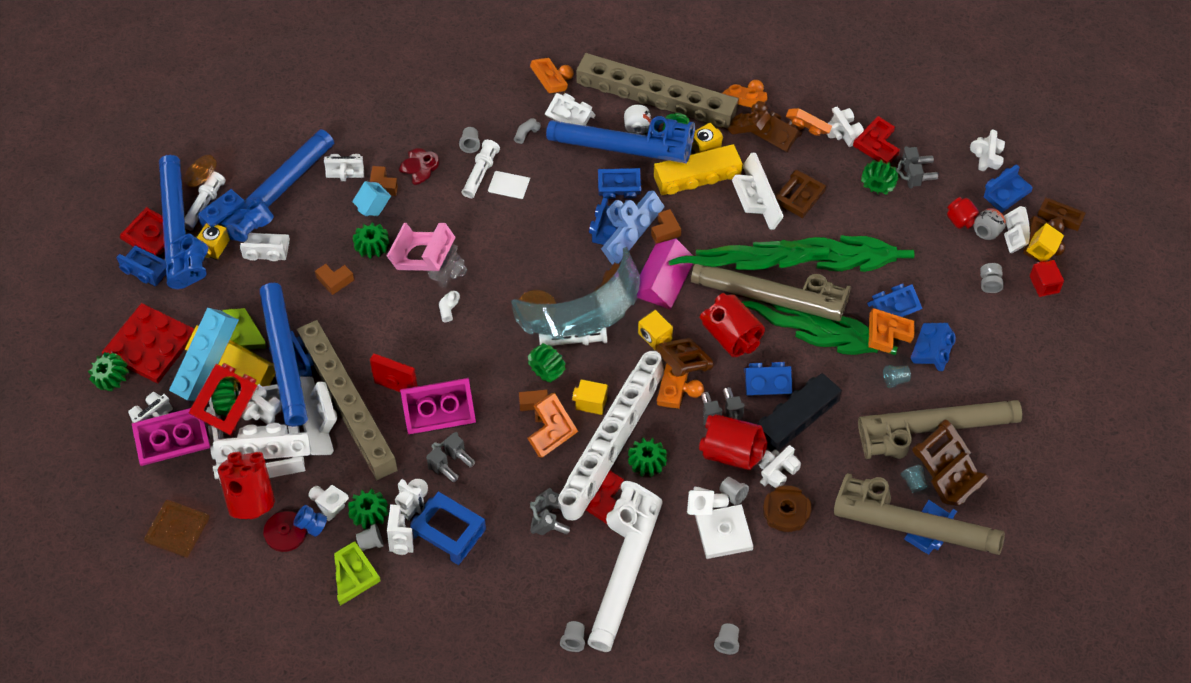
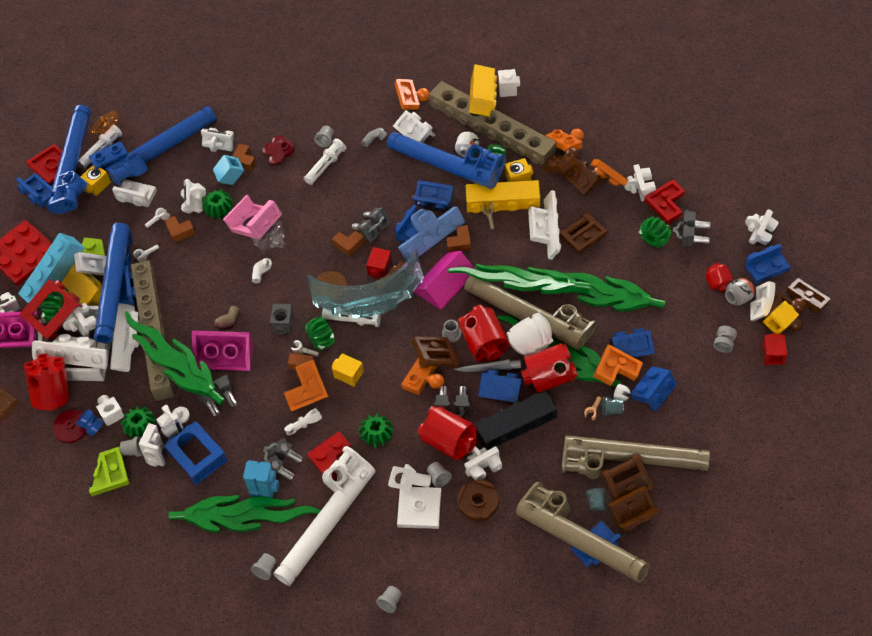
camera: 20 degrees right, 0 degrees up
(248, 338) = (90, 263): none -> white plate
(302, 314) = (143, 257): none -> white hand
(306, 265) = (161, 213): none -> white hand
(340, 235) = (192, 197): none -> white hips
(392, 373) = (192, 316): red plate -> none
(400, 427) = (183, 363): none -> green piece
(430, 370) = (227, 320): none -> dark tan arm
(485, 593) = (232, 517): none -> green piece
(491, 348) = (280, 312): none -> dark grey brick
(508, 184) = (345, 179): white sticker -> none
(529, 386) = (300, 350): none -> white hand
(539, 257) = (348, 244): none -> dark orange piece
(539, 540) = (260, 479): none -> dark azure brick
(558, 233) = (368, 229): none -> dark grey piece
(567, 459) = (312, 416): none -> white piece
(584, 271) = (379, 263): none -> red brick
(611, 436) = (351, 405): white beam -> none
(637, 55) = (482, 90): none -> yellow brick
(655, 329) = (420, 323): yellow brick -> none
(659, 42) = (508, 83): none -> white brick
(690, 191) = (489, 212): none -> dark tan hand
(696, 334) = (454, 335): none -> light grey piece
(765, 355) = (497, 366): none -> light grey bar
(788, 316) = (530, 335): none -> white piece
(819, 347) = (542, 369): none -> red cylinder
(876, 382) = (593, 409): none -> light nougat hand
(901, 356) = (621, 391): none -> white hinge

